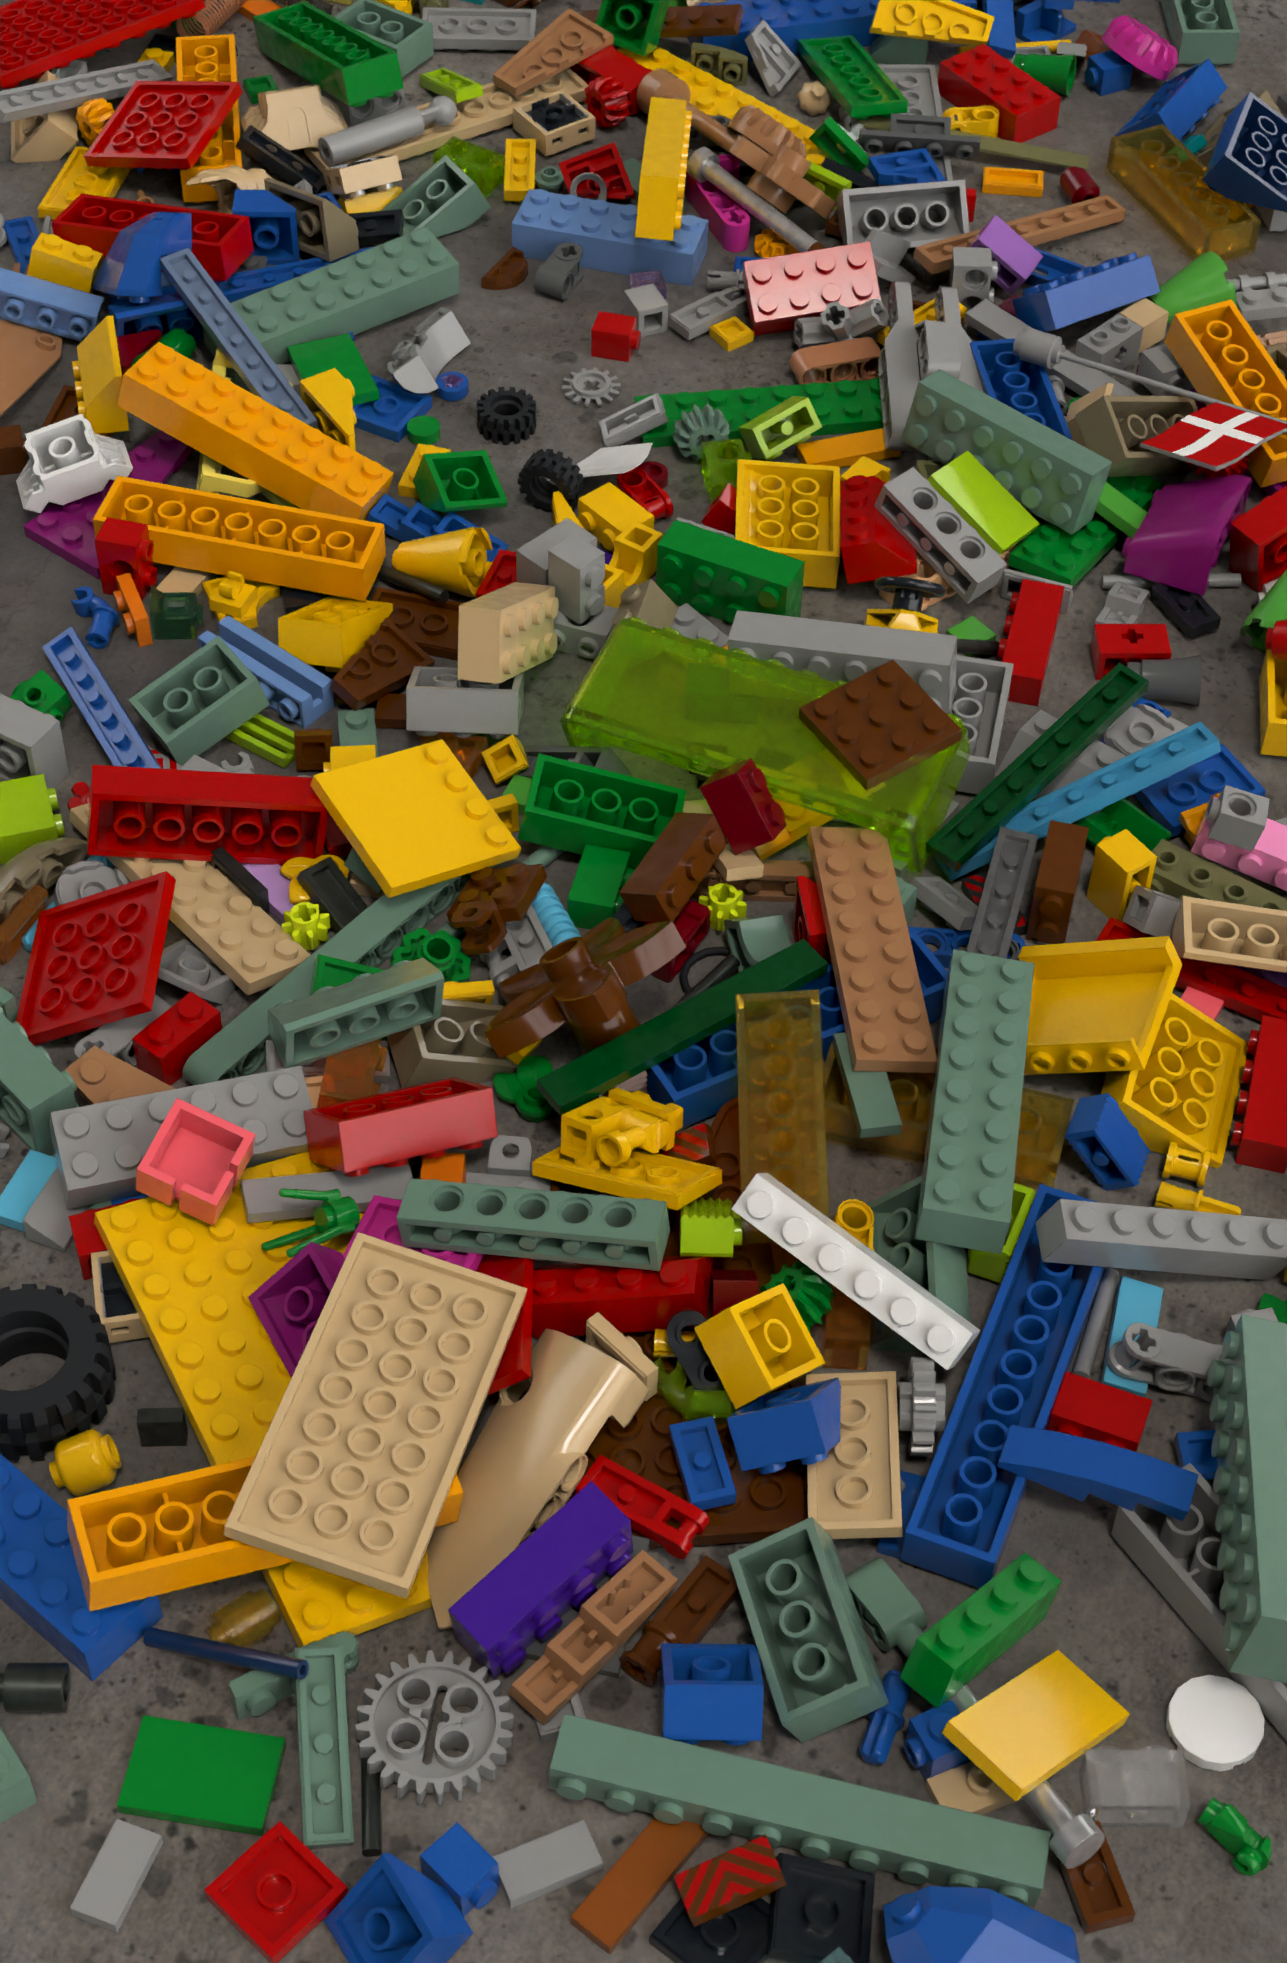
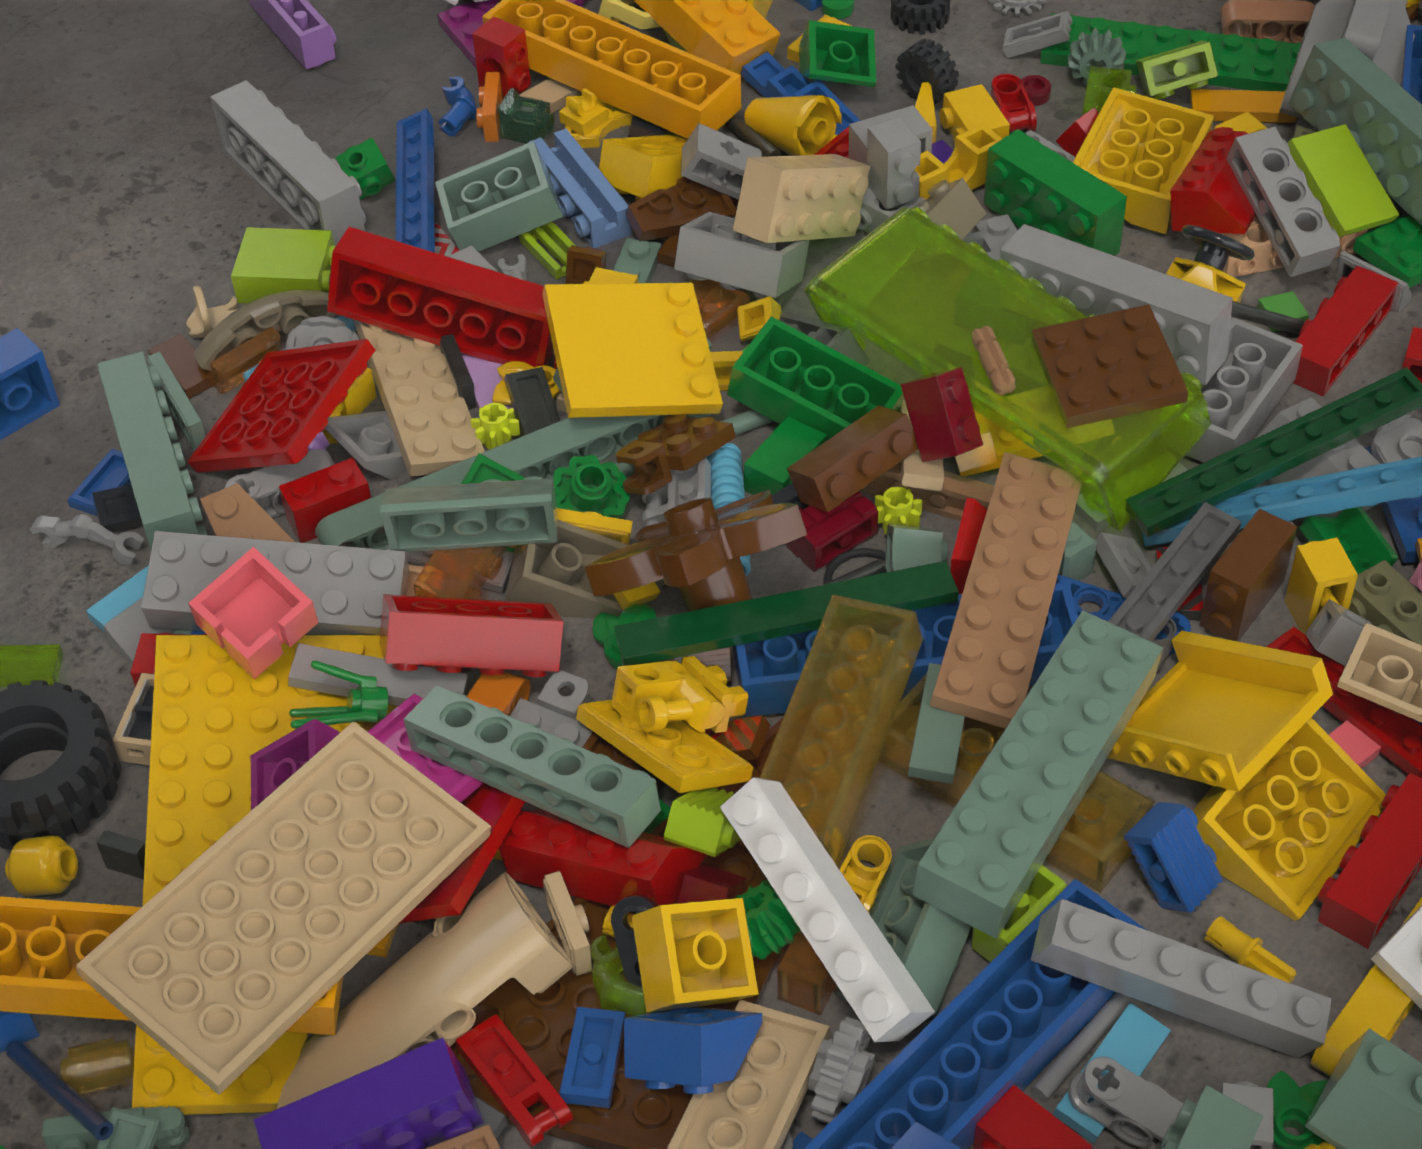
camera: 25 degrees right, 0 degrees up
(403, 615) = (716, 160): none -> light grey brick
(614, 460) = (999, 66): white sticker -> none
(776, 744) = (993, 360): none -> medium nougat axle
(1186, 1164) = (1257, 906): yellow bush -> none

